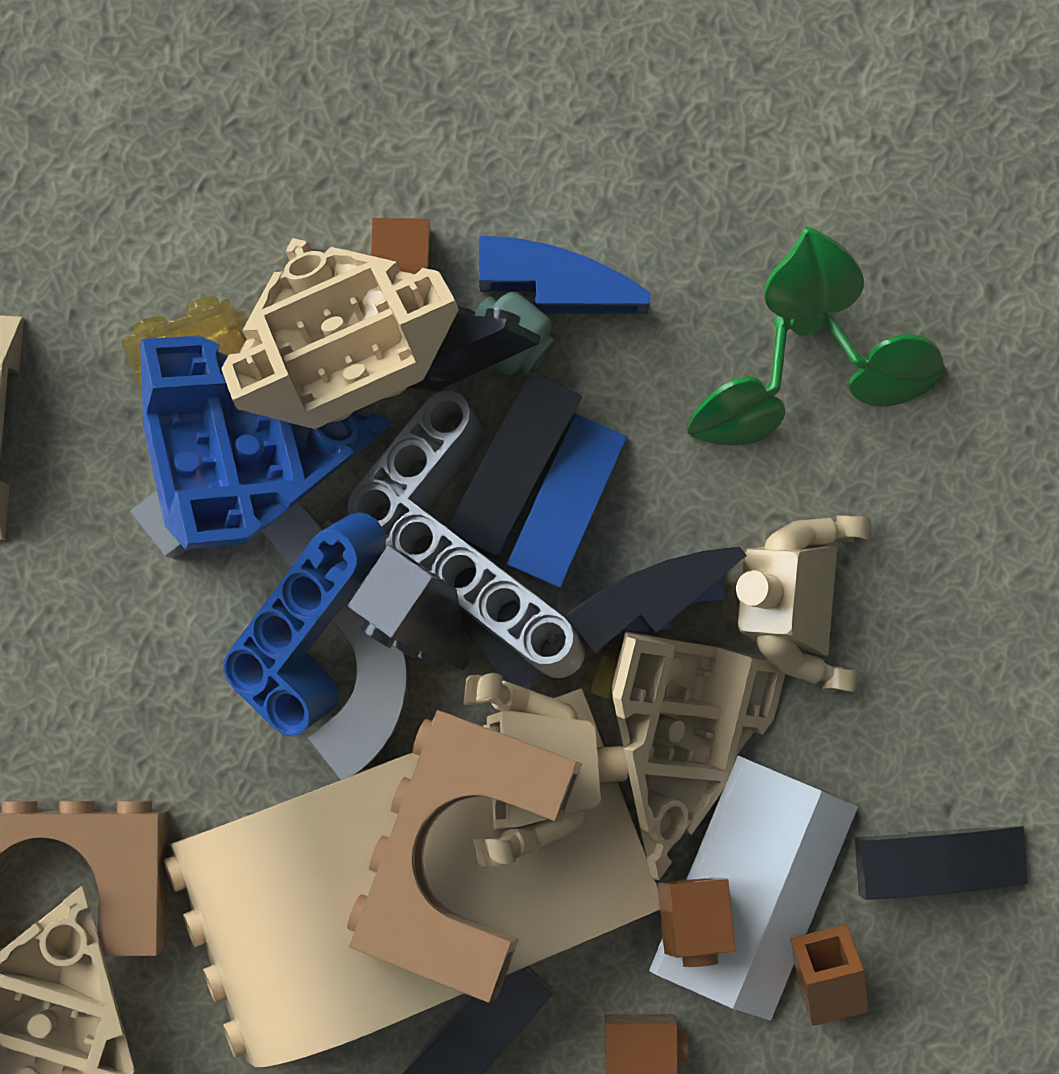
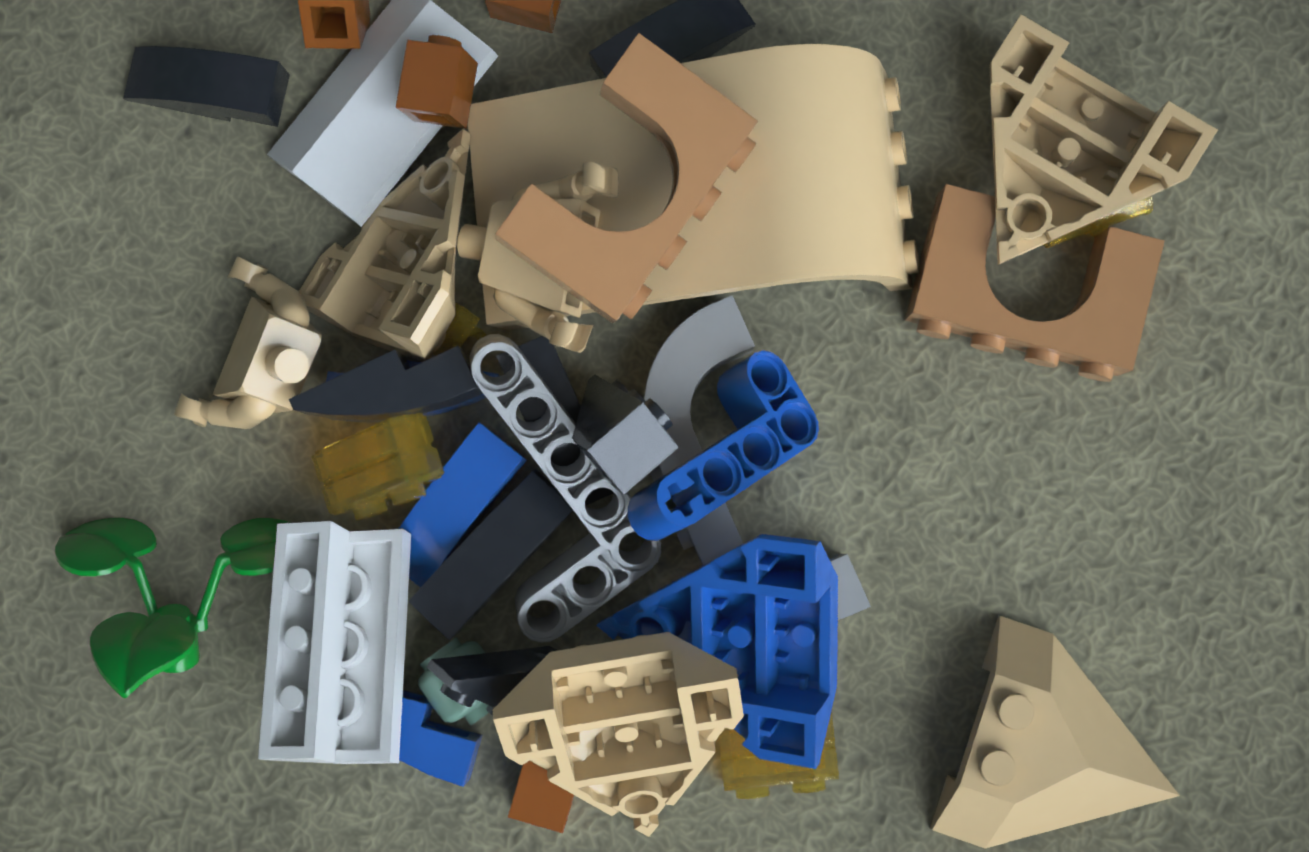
camera: 160 degrees left, 0 degrees up
(636, 336) = (336, 645): none -> white slope
(647, 519) = (378, 465): none -> clear yellow brick

